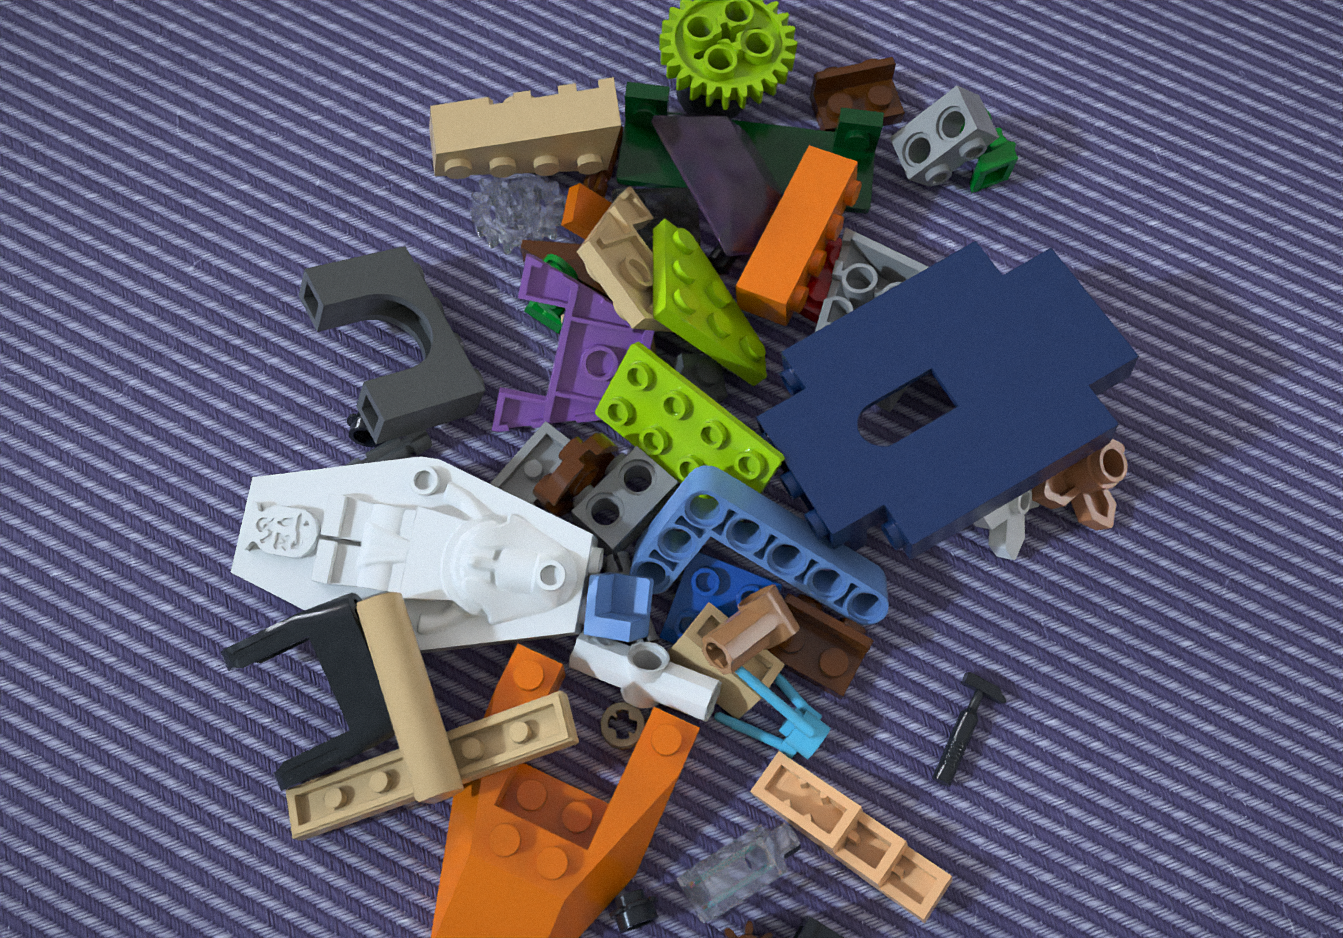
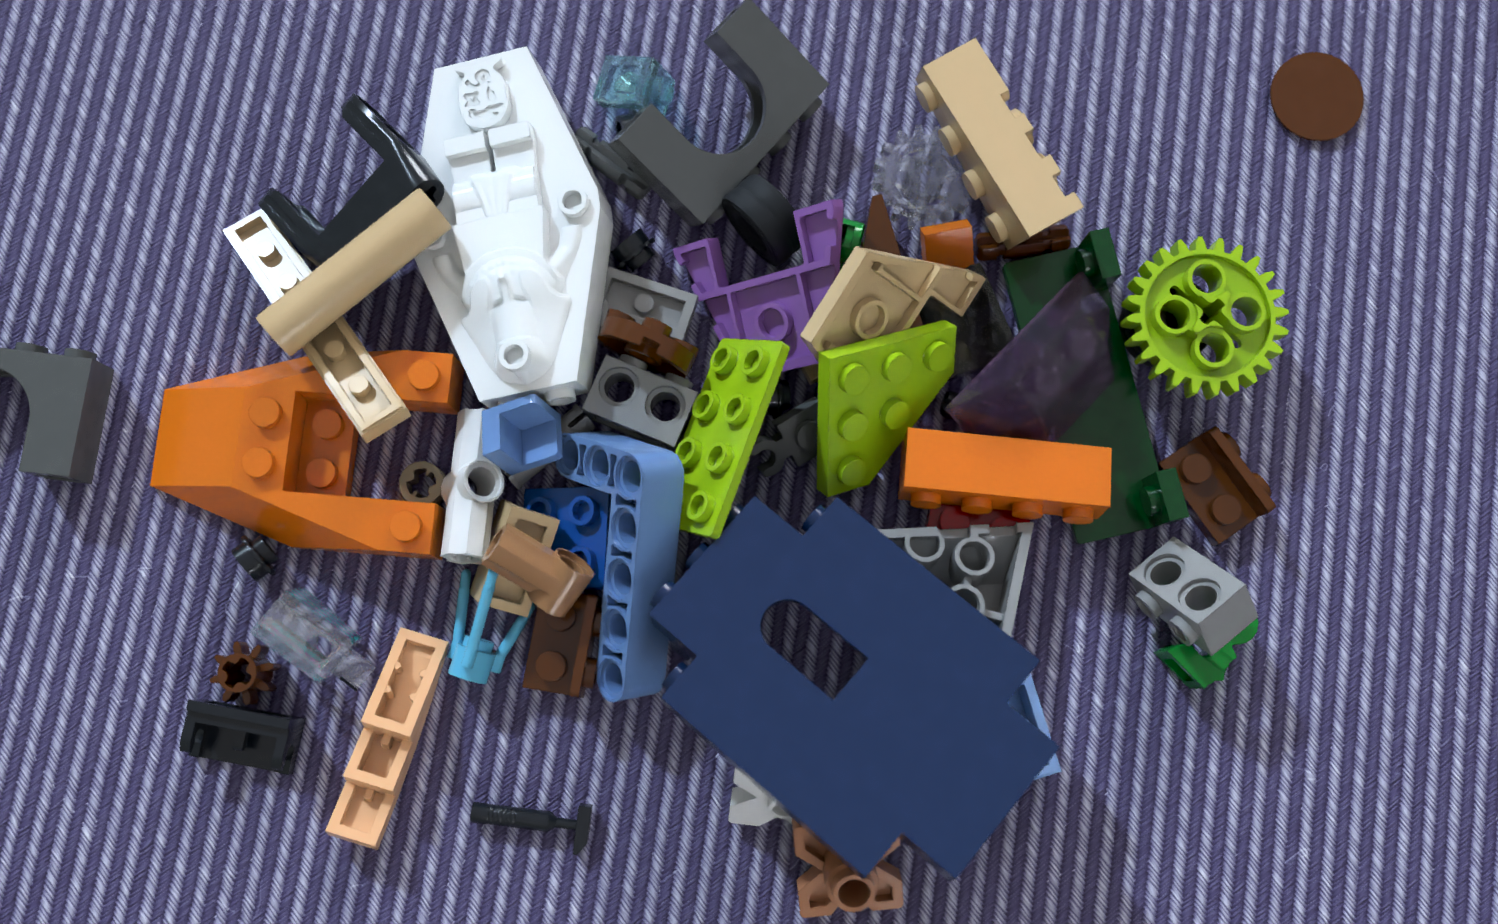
camera: 70 degrees right, 10 degrees up
(324, 409) = (634, 83): none -> clear light blue bracket
(480, 461) = (634, 250): none -> black plate
(503, 339) = (763, 219): none -> black tyre

